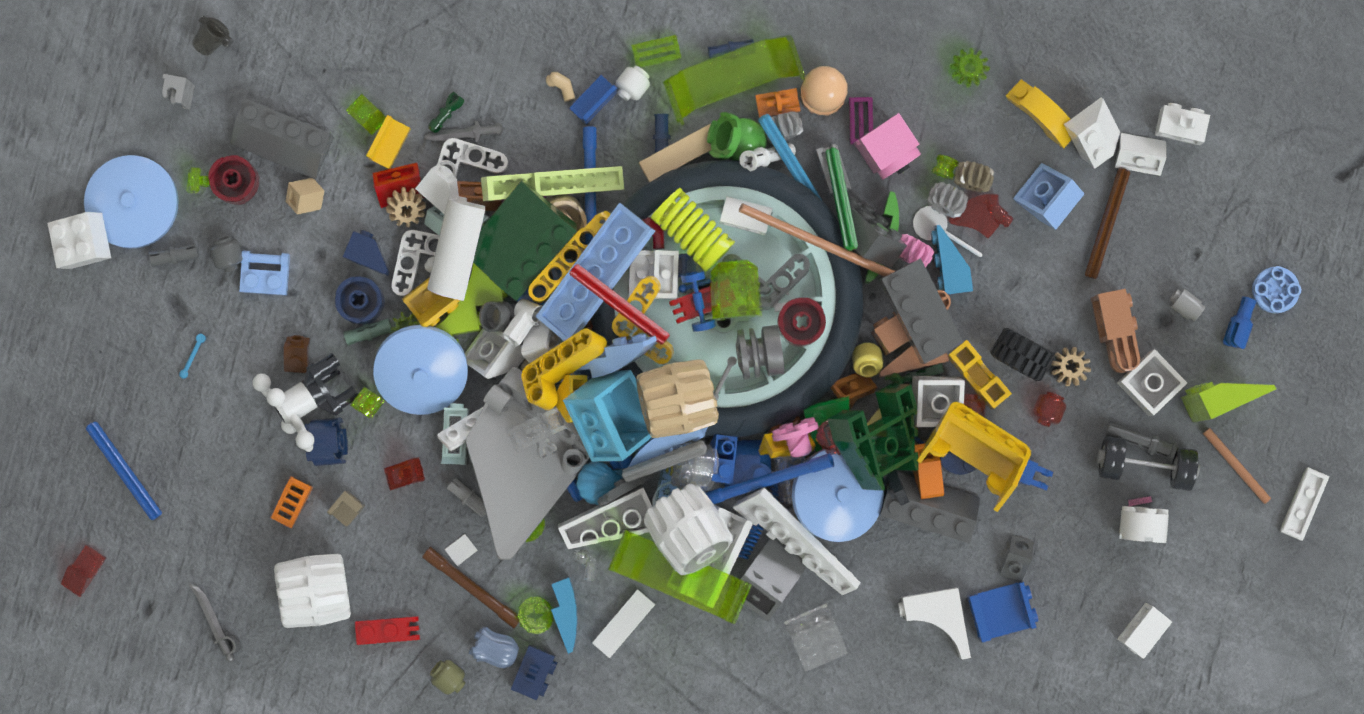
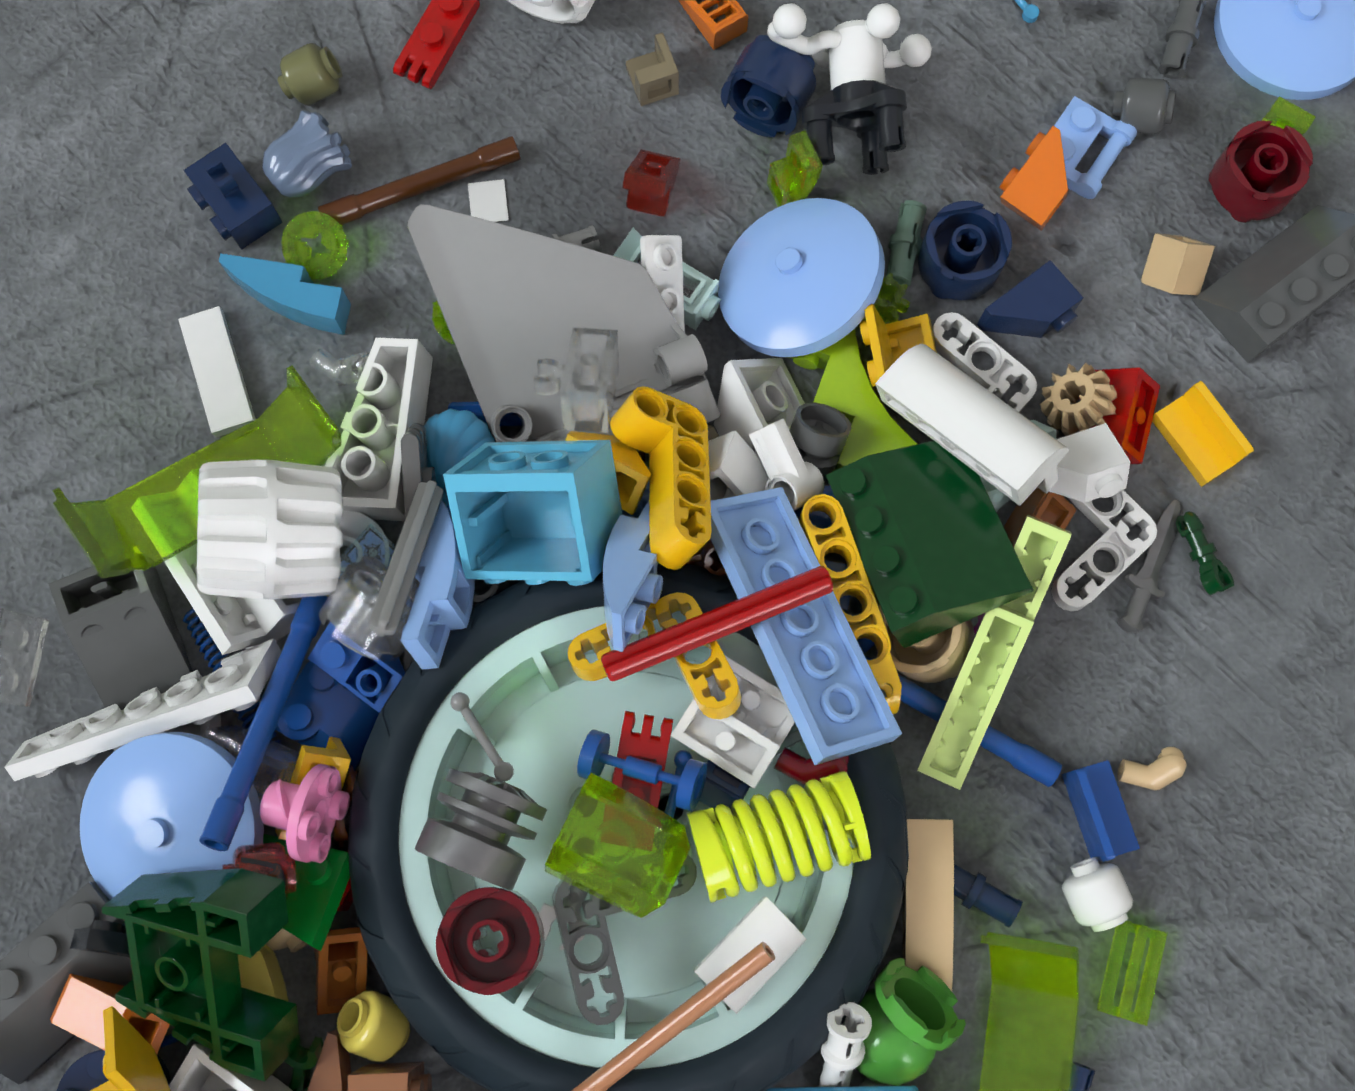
camera: 120 degrees right, 10 degrees down
(296, 354) = (933, 123): reddish brown bracket -> none
(302, 281) = (1041, 183): none -> orange slope
(366, 114) = (1269, 424): clear neon green bracket -> none
(677, 398) = (486, 623): tan wheel -> none

